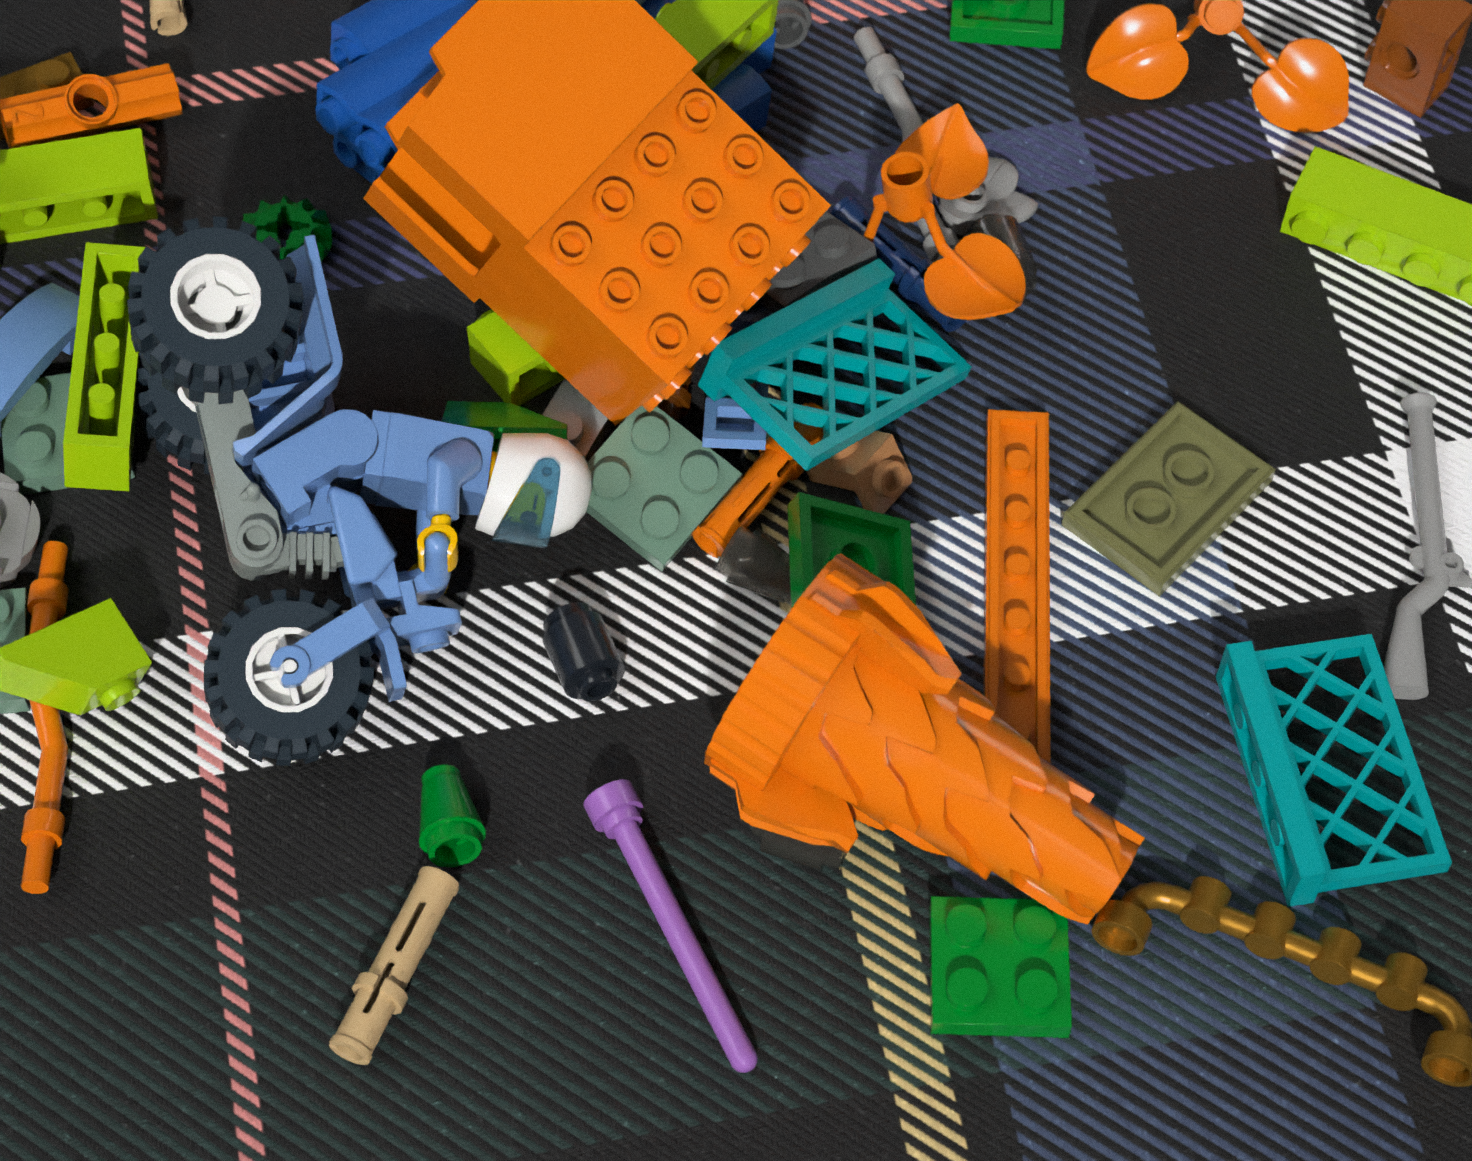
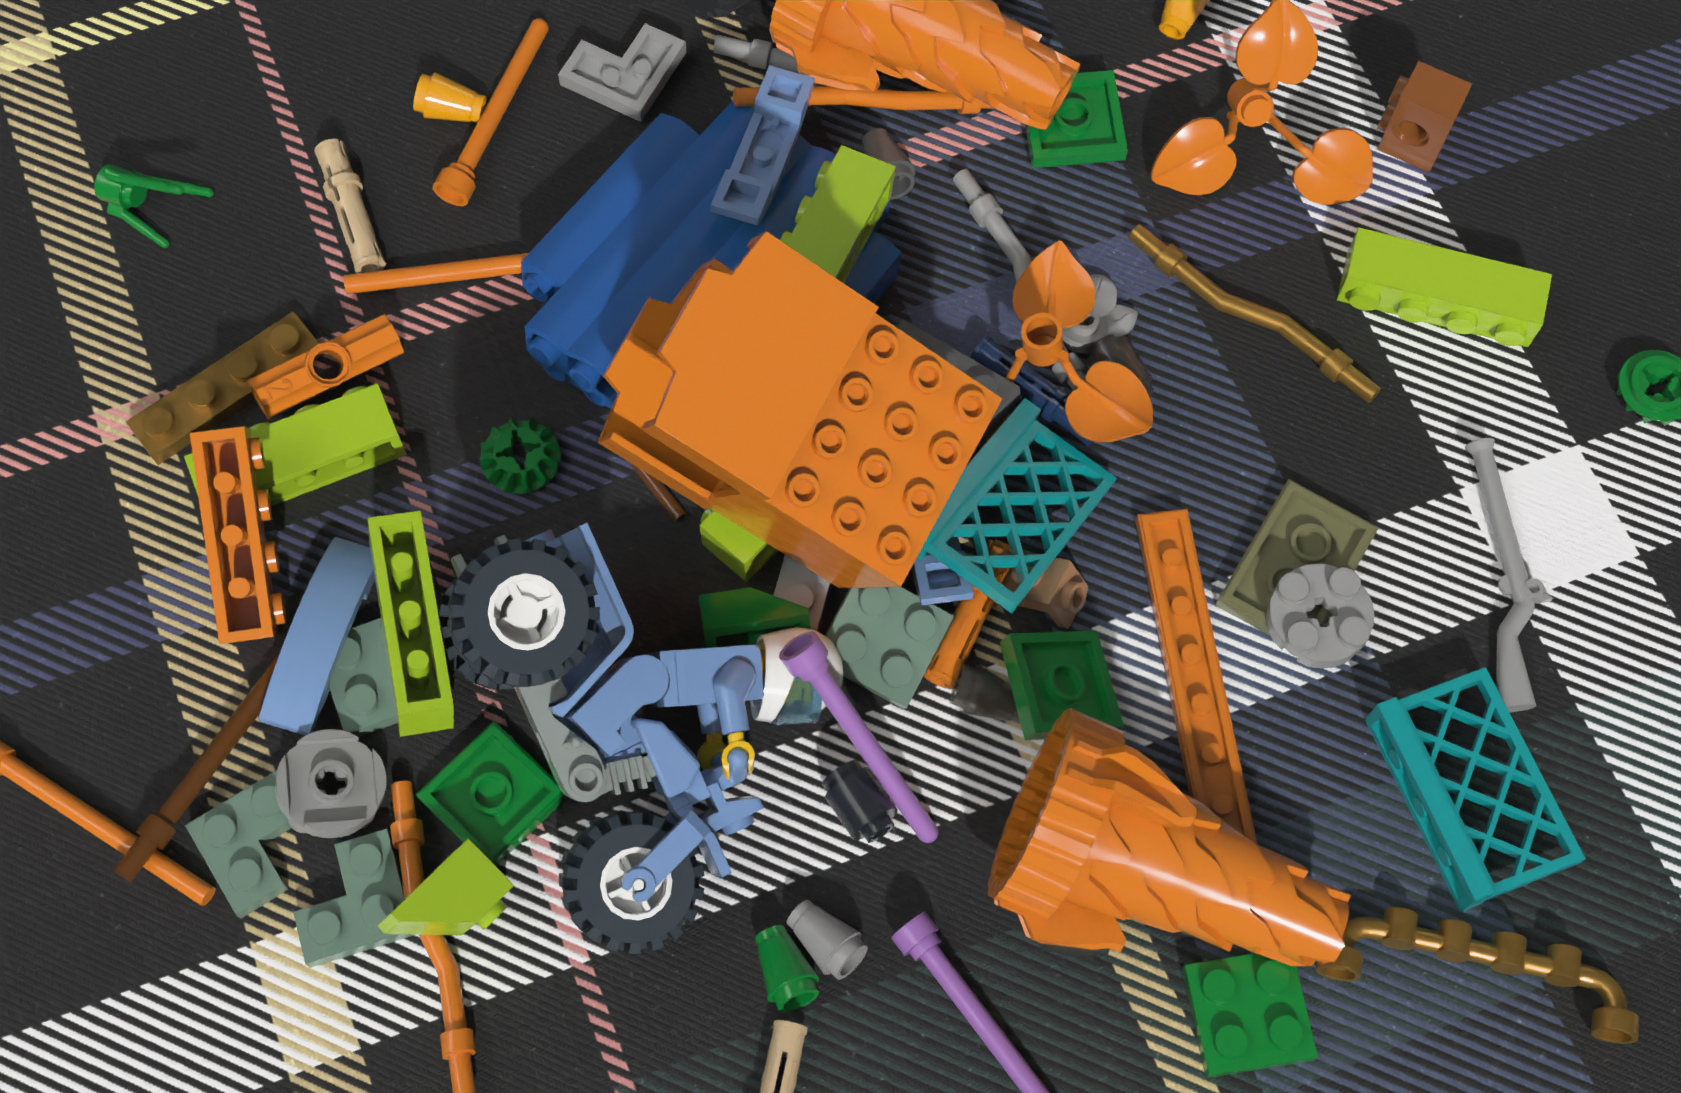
camera: 10 degrees left, 10 degrees up
(159, 575) = (492, 794): none -> green tile
(232, 41) = (433, 273): none -> orange bar
(430, 288) = (662, 493): none -> reddish brown piece
(508, 794) = (828, 940): none -> light grey cone
(546, 456) = (807, 659): none -> medium lavender piece
(1188, 514) = (1302, 636): none -> light grey plate
(1258, 290) = (1333, 364): none -> pearl gold bar

